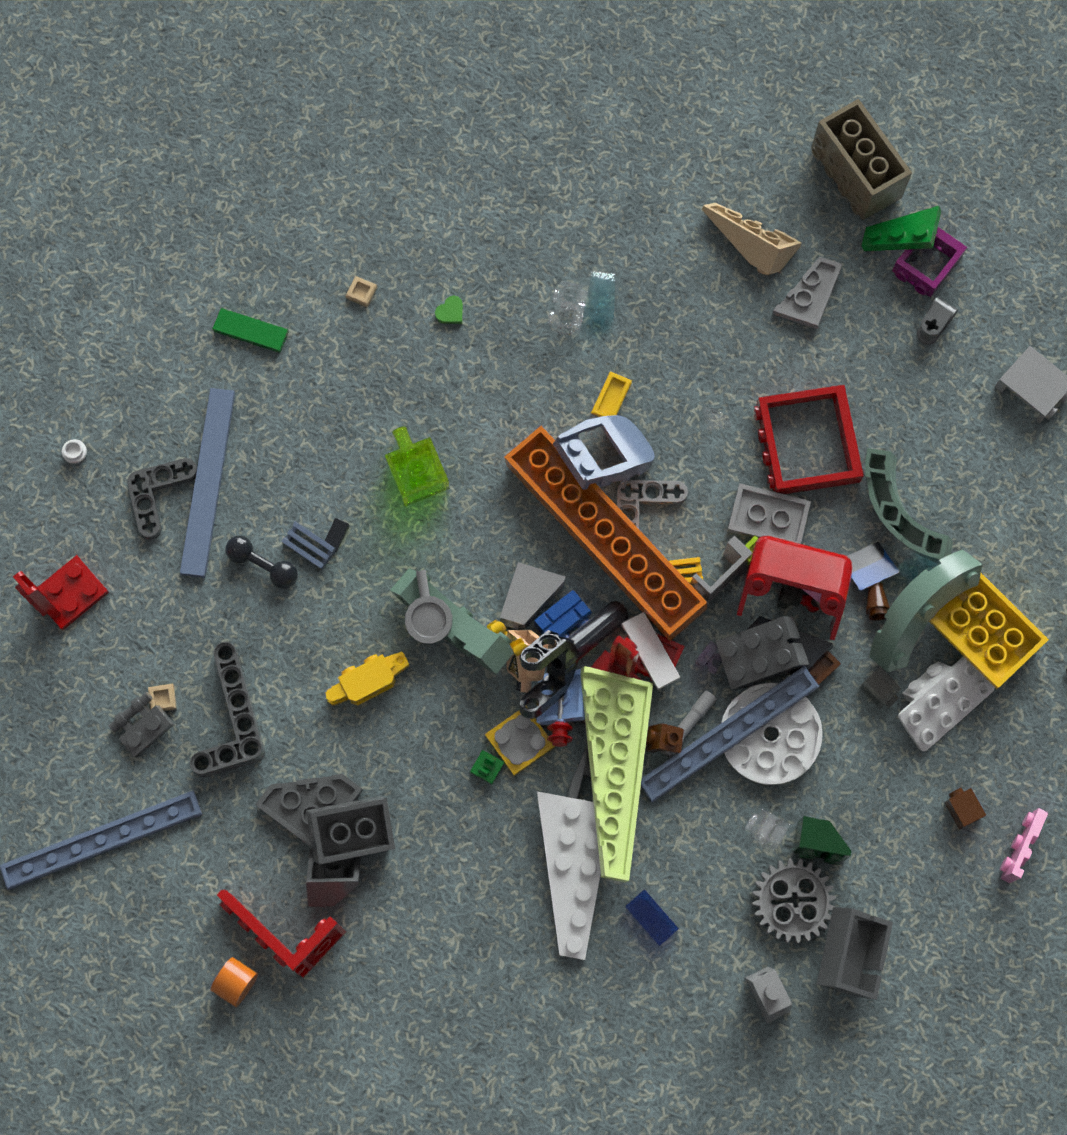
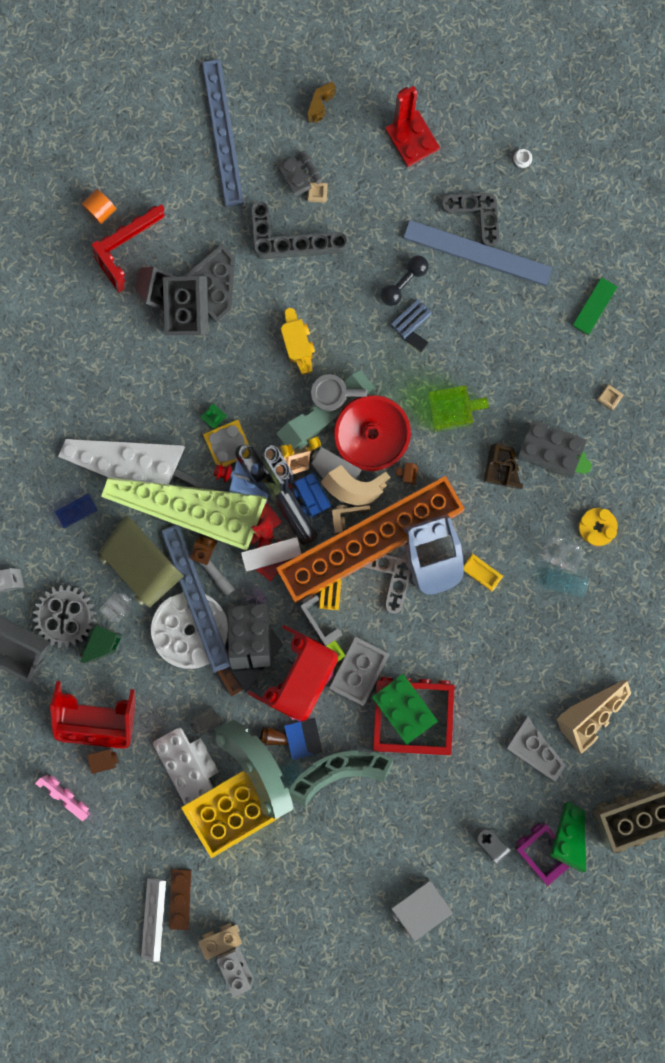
camera: 100 degrees right, 10 degrees up
(46, 721) = (317, 109): none -> pearl gold slope
(442, 342) = (552, 449): none -> dark grey piece
(467, 399) = (502, 460): none -> dark brown slope
(467, 559) = (372, 432): none -> red dish
(508, 506) = (408, 473): none -> dark orange tile
(520, 287) = (603, 517): none -> yellow plate
(549, 564) = (352, 491): none -> tan arch
(589, 578) = (339, 522): none -> tan bracket
(701, 815) = (139, 562): none -> olive windscreen
(803, 448) = (404, 709): none -> green plate
(920, 828) = (92, 724): none -> red windscreen

